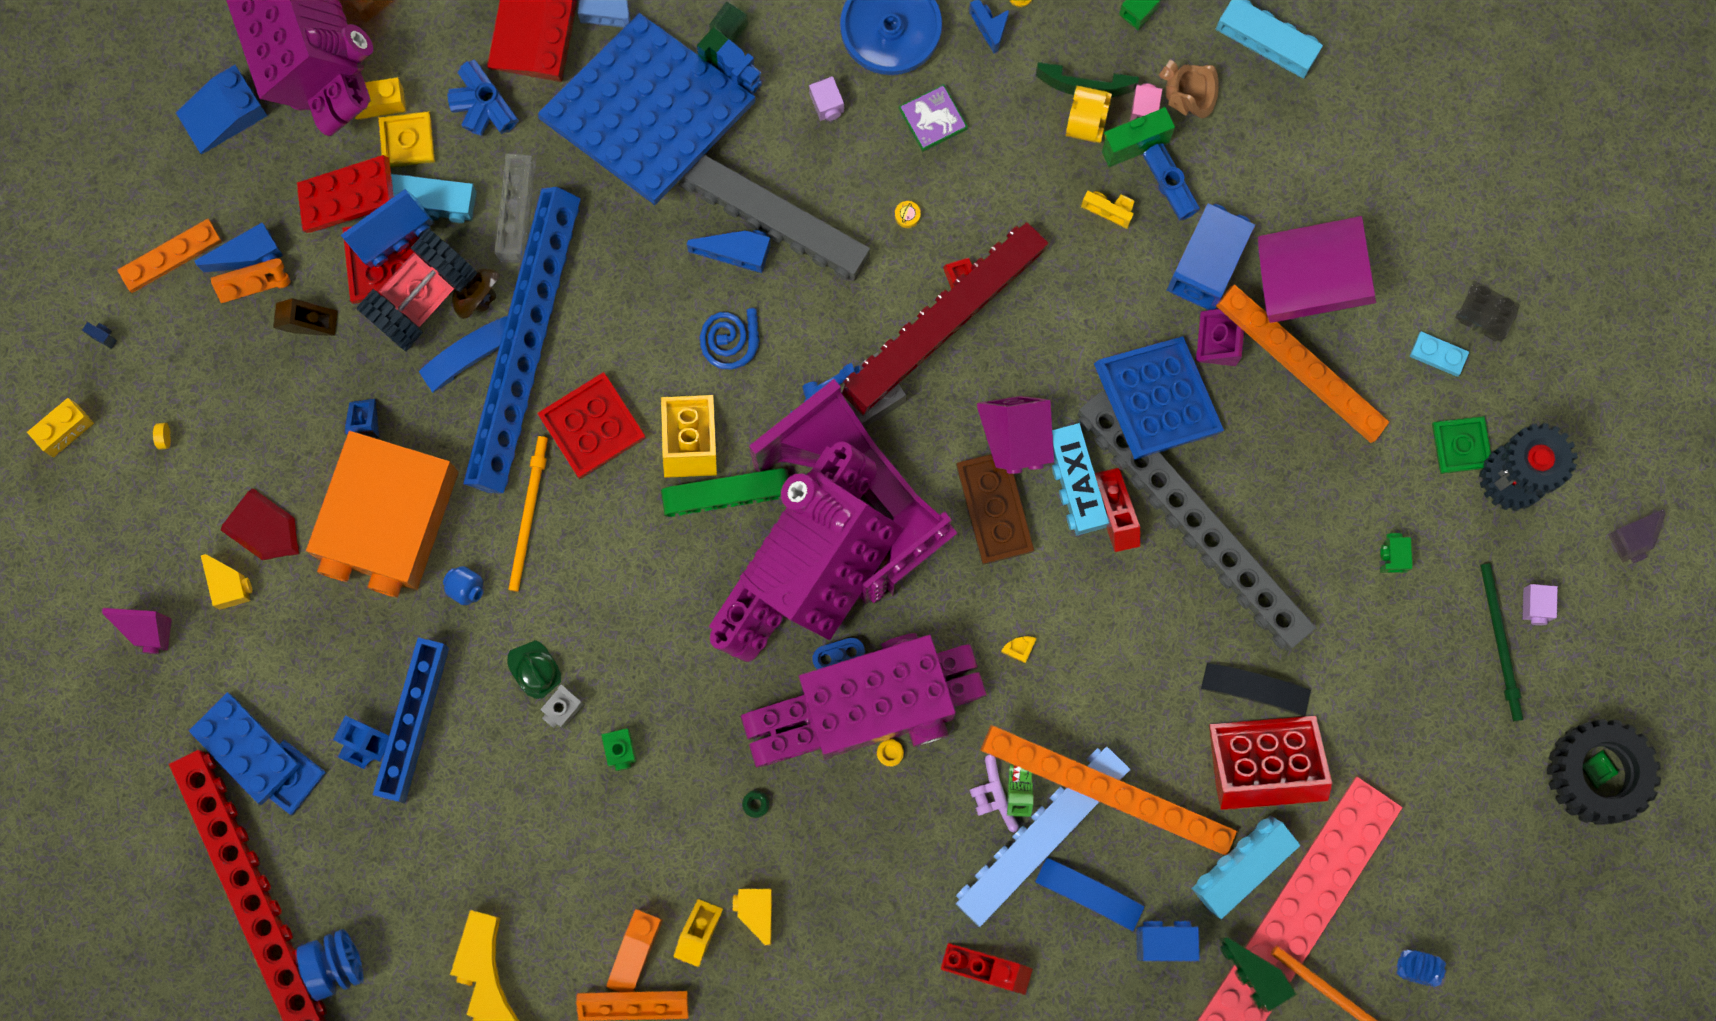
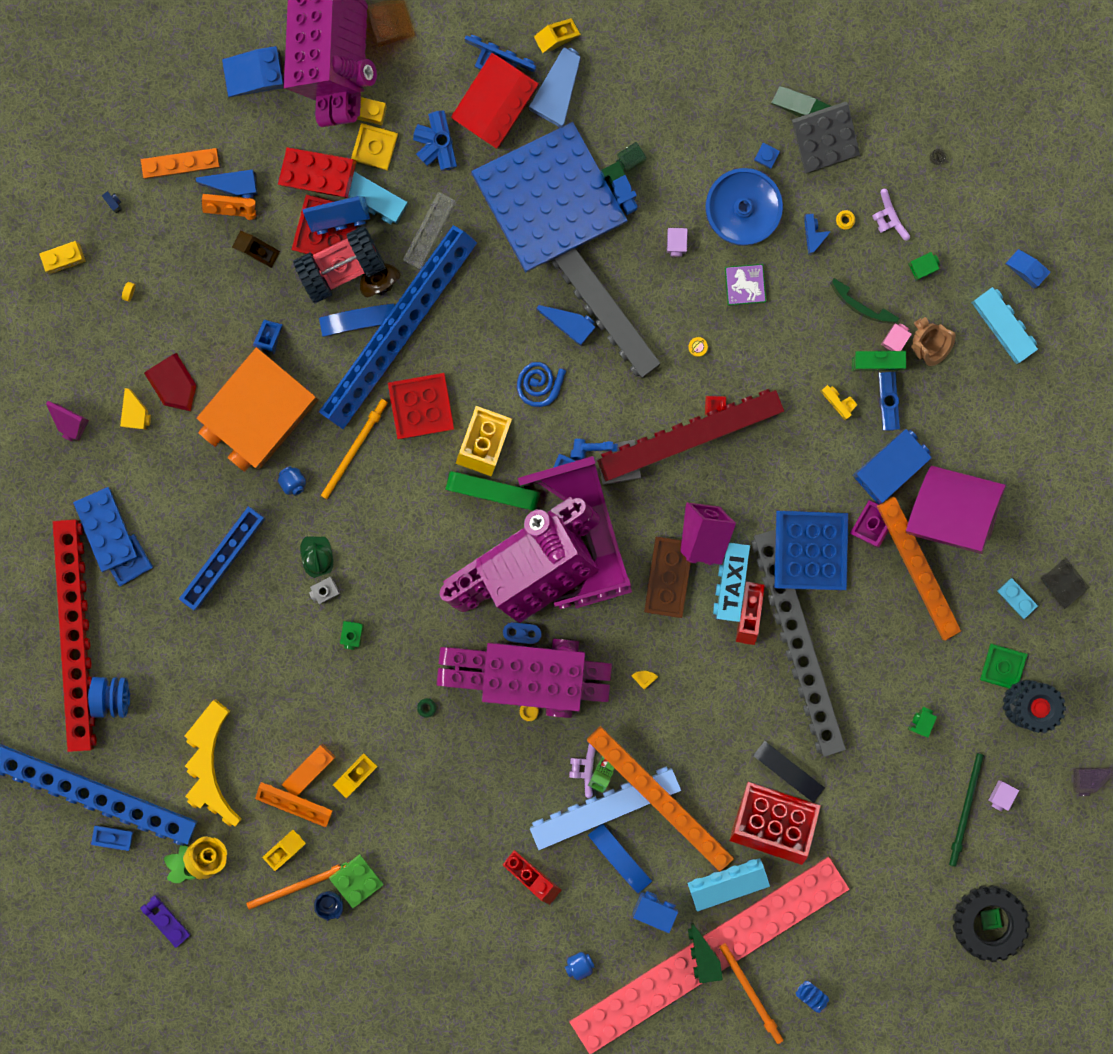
camera: 25 degrees right, 10 degrees up
(360, 742) = (183, 559): blue brick -> none
(755, 911) = (397, 778): yellow slope -> none
(1088, 114) = (852, 330): yellow brick -> none

